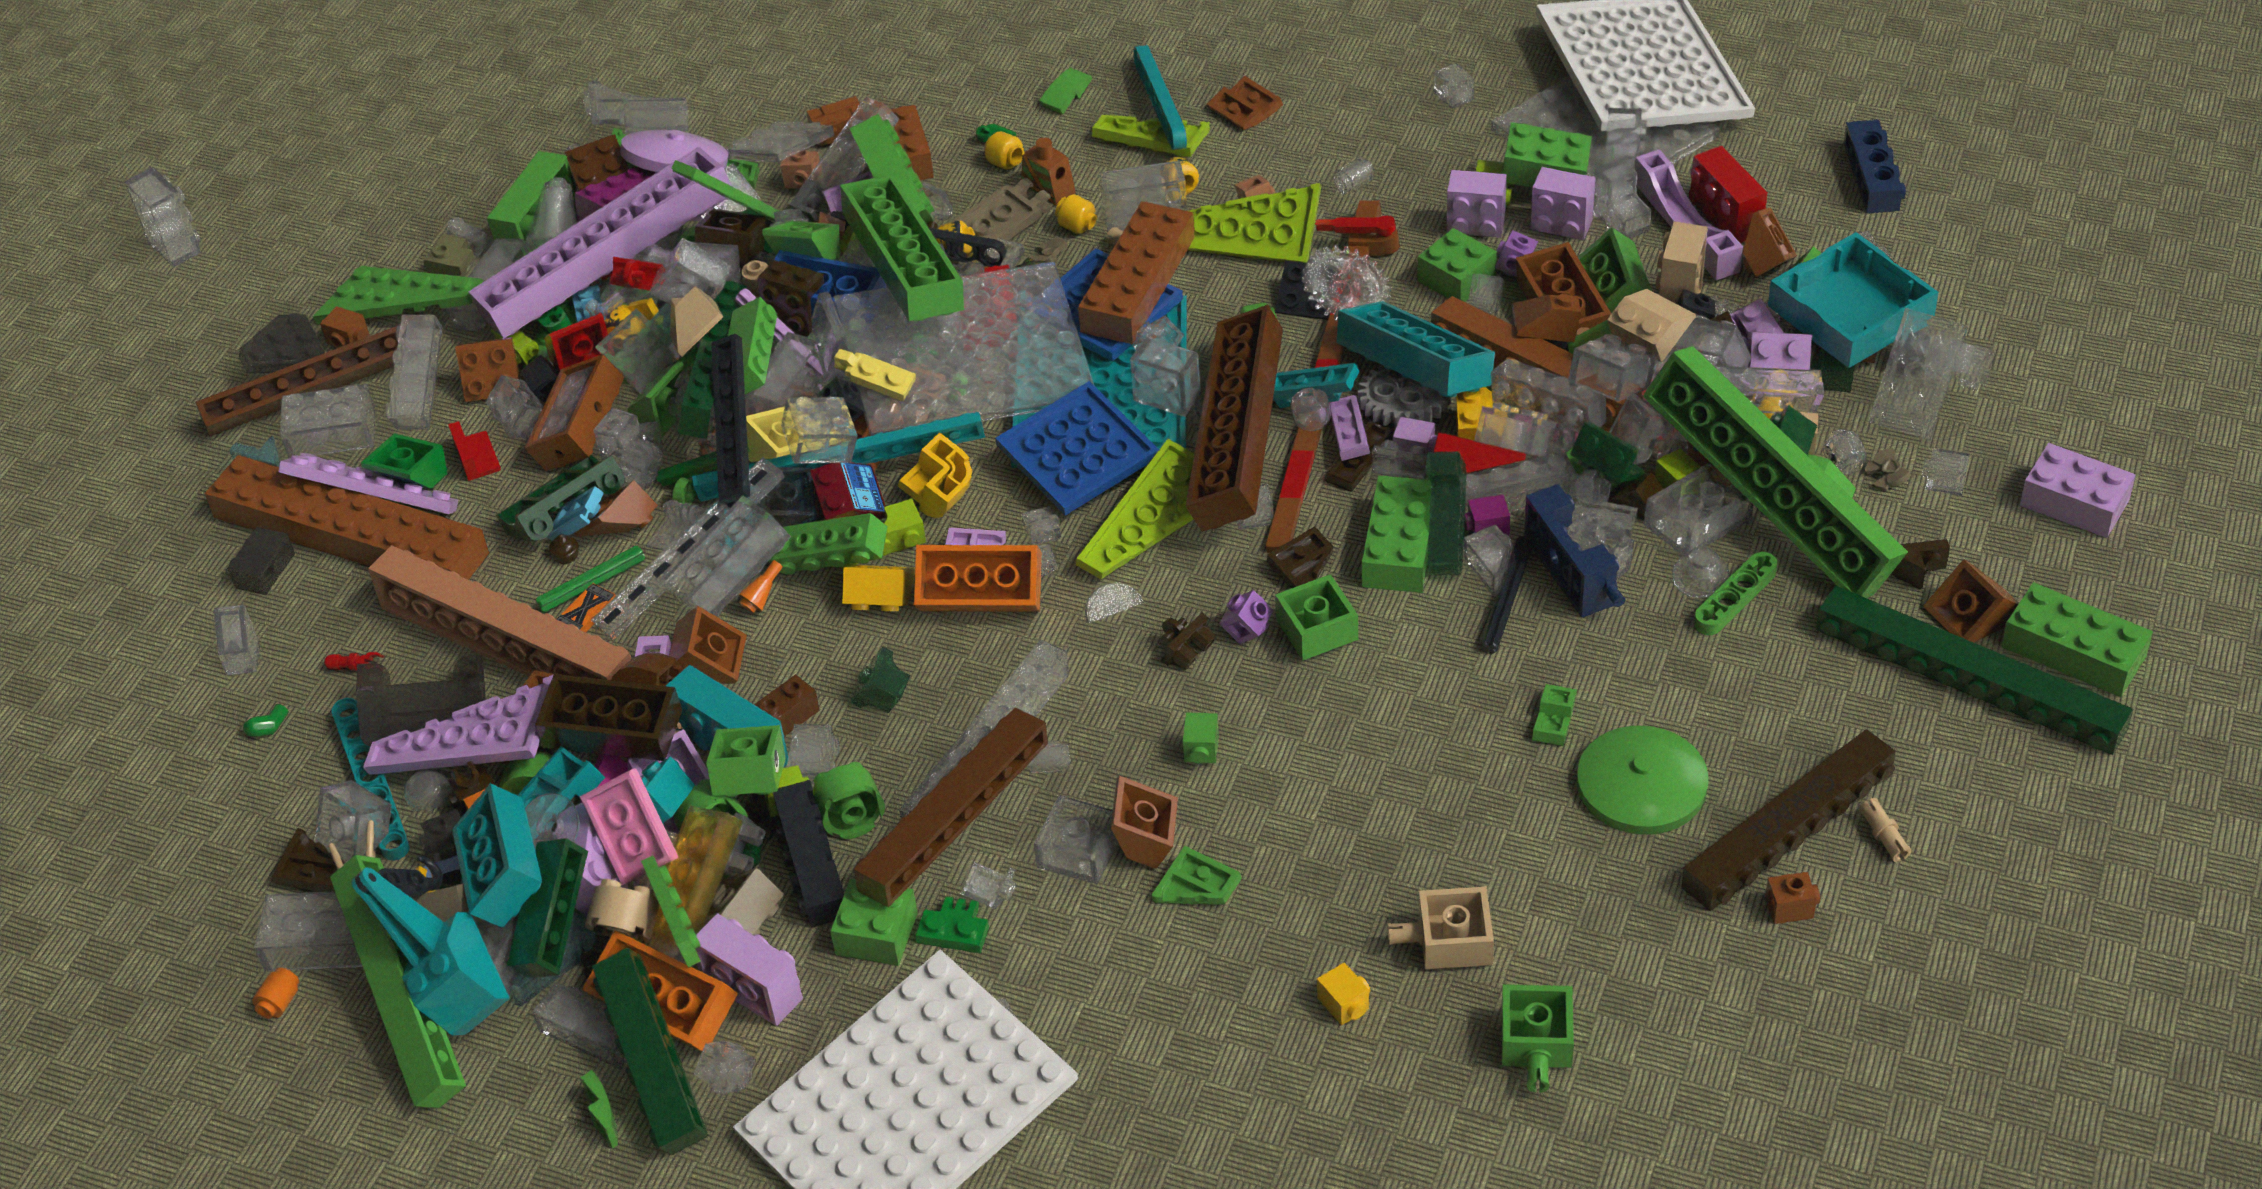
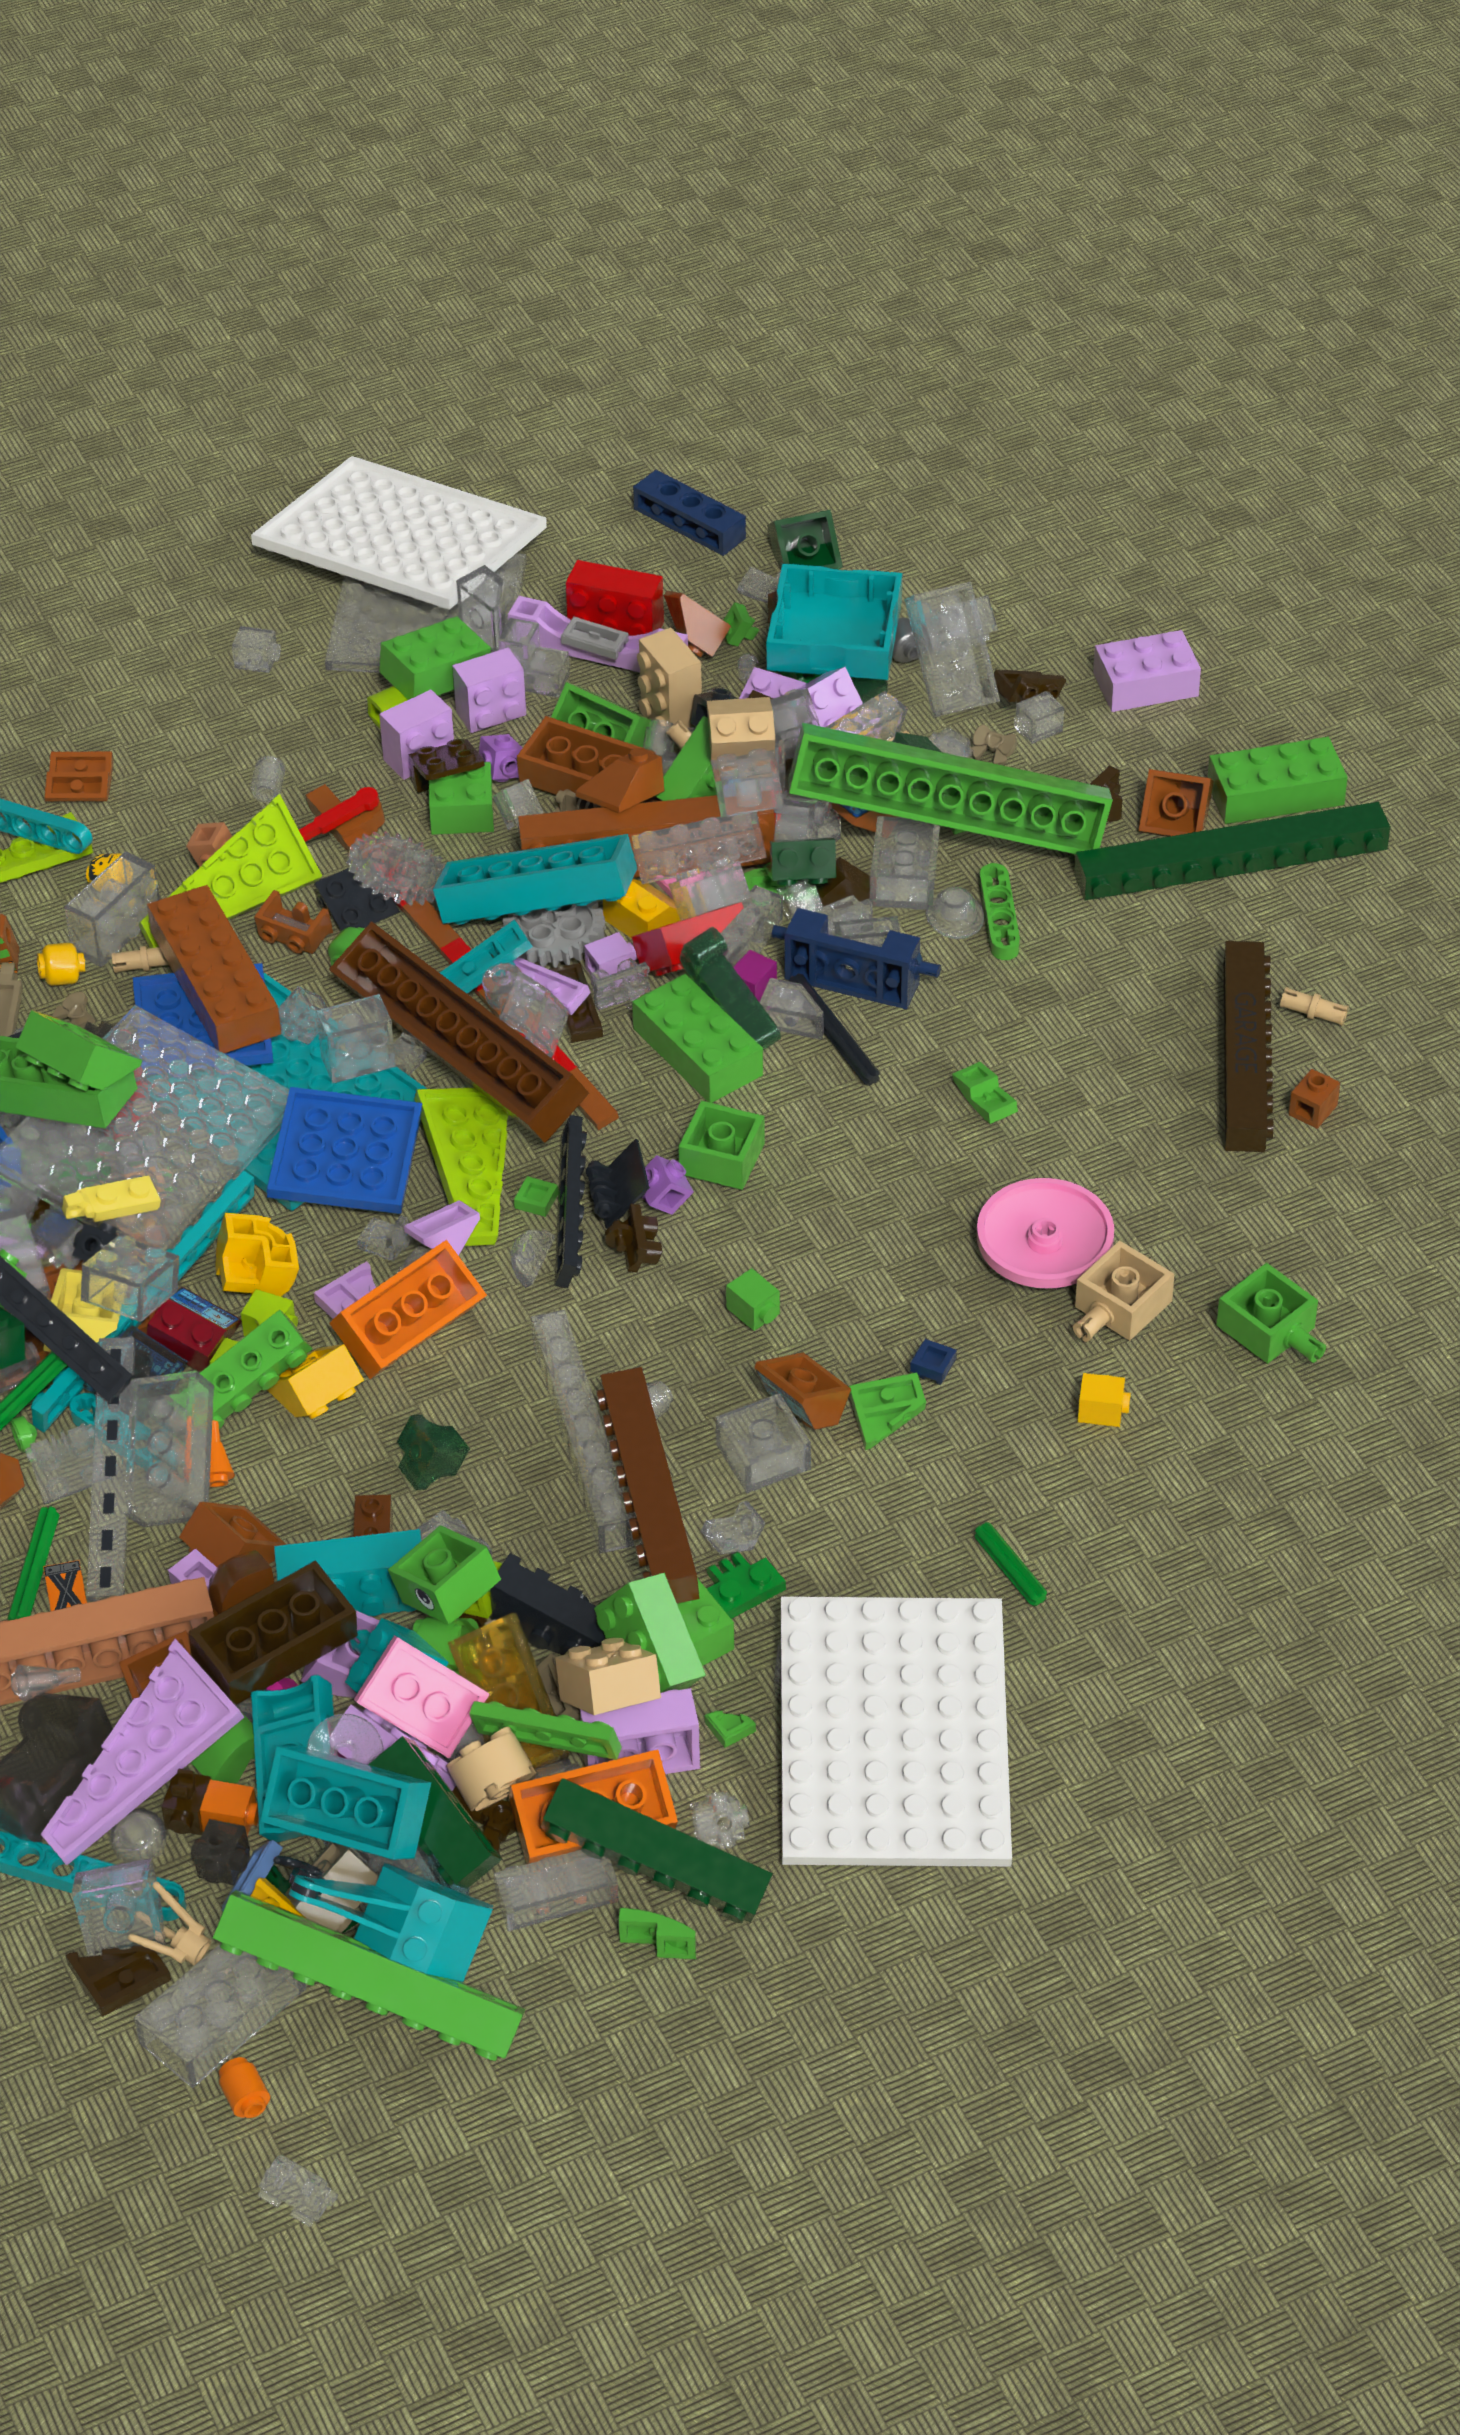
camera: 50 degrees left, 0 degrees up
(215, 1077) = (298, 2188): none -> clear piece
(481, 645) = (33, 1680): none -> clear cone
(746, 906) = (607, 1676): none -> tan brick
(814, 907) = (649, 1617): none -> brick
(824, 1014) = (729, 1727): none -> bright green tile
(848, 800) = (542, 1545): bright green brick -> none
(928, 254) = (74, 1052): none -> bright green slope
(1063, 542) = (450, 1223): none -> lavender slope
(1136, 1058) = (1010, 1564): none -> green axle
(1167, 567) = (536, 1196): none -> bright green tile
(1170, 589) = (569, 1197): none -> black plate
(1211, 592) = (618, 1184): none -> black hinge
(1244, 279) = (292, 927): none -> dark orange window
(1262, 874) = (933, 1361): none -> dark blue tile
(1301, 439) = (535, 1013): none -> clear slope
(1301, 558) = (644, 1115): dark brown wing -> none
(1454, 841) = (1044, 1232): none -> bright pink dish
(1468, 231) = (443, 761): none -> dark brown bracket
(1642, 779) = (1105, 1094): bright green dish -> none
(1671, 207) = (594, 638): none -> light grey tile
(1674, 467) = (855, 845): lime brick -> none
(1929, 238) = (806, 540): none -> dark green slope
(1957, 436) = (1025, 684): none -> dark brown bracket

